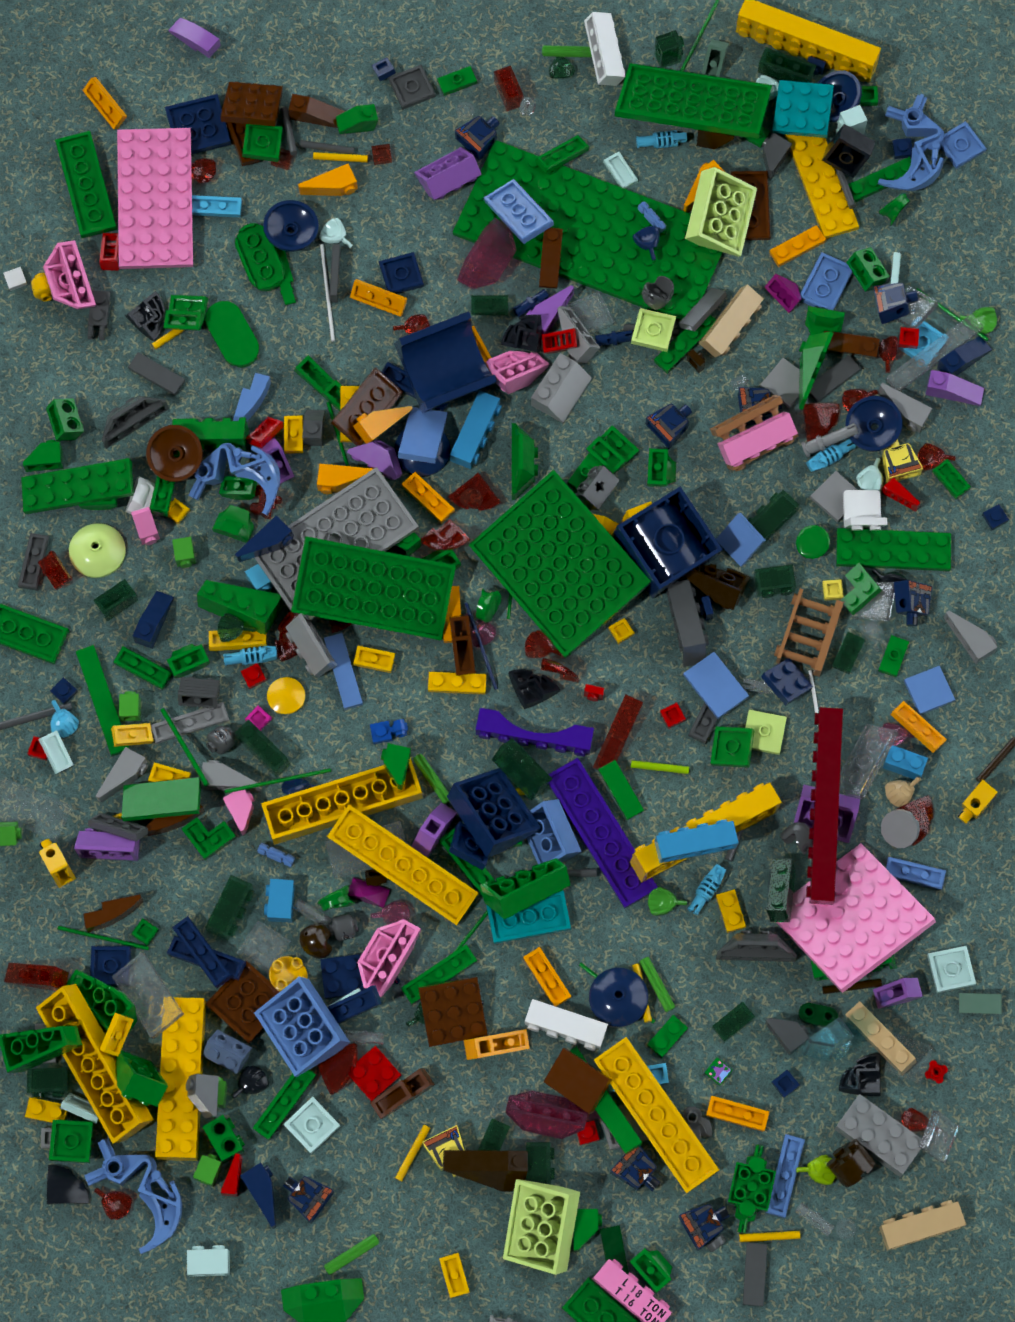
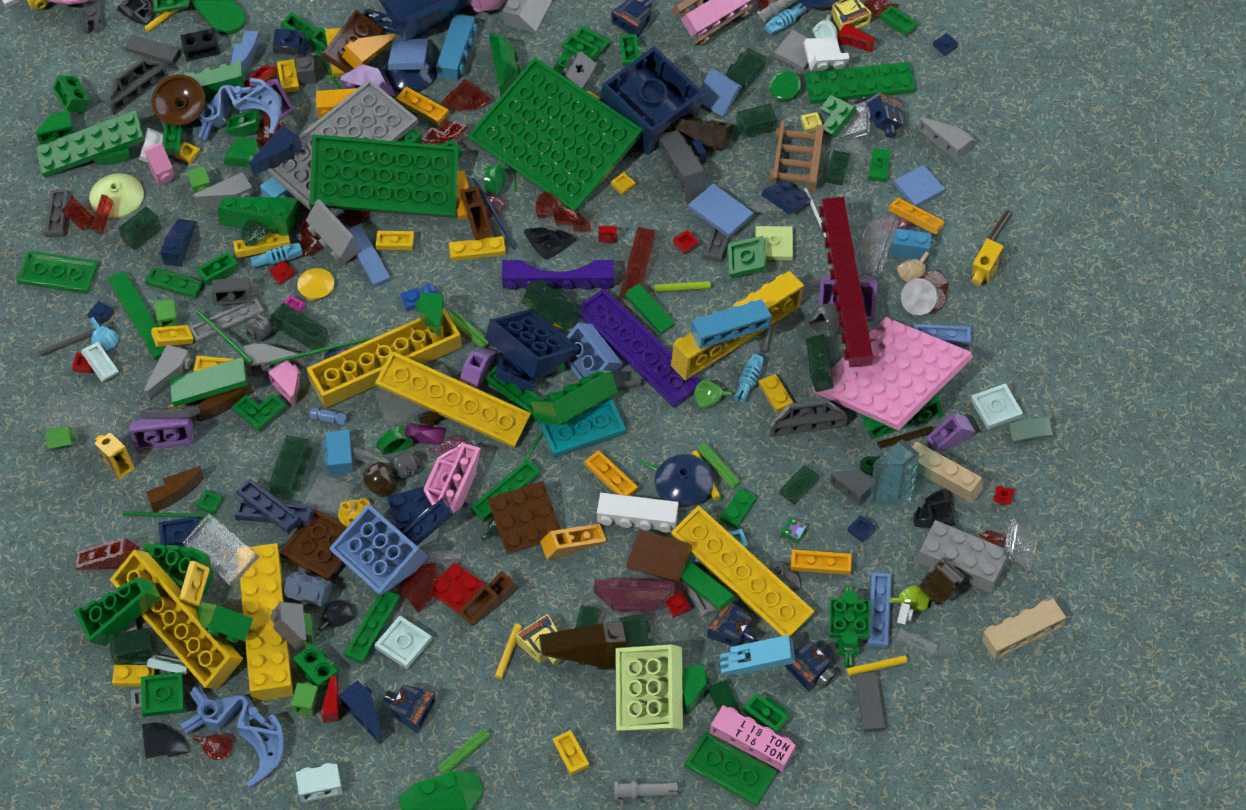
camera: 10 degrees left, 15 degrees down
(79, 576) = (102, 214): none -> clear red tile
(206, 383) = (200, 44): none -> black brick
(216, 569) = (232, 187): none -> light grey slope
(301, 396) = (288, 41): none -> dark blue torso
(659, 1209) = (763, 655): none -> medium azure hinge
(808, 1188) = (905, 614): none -> white plate

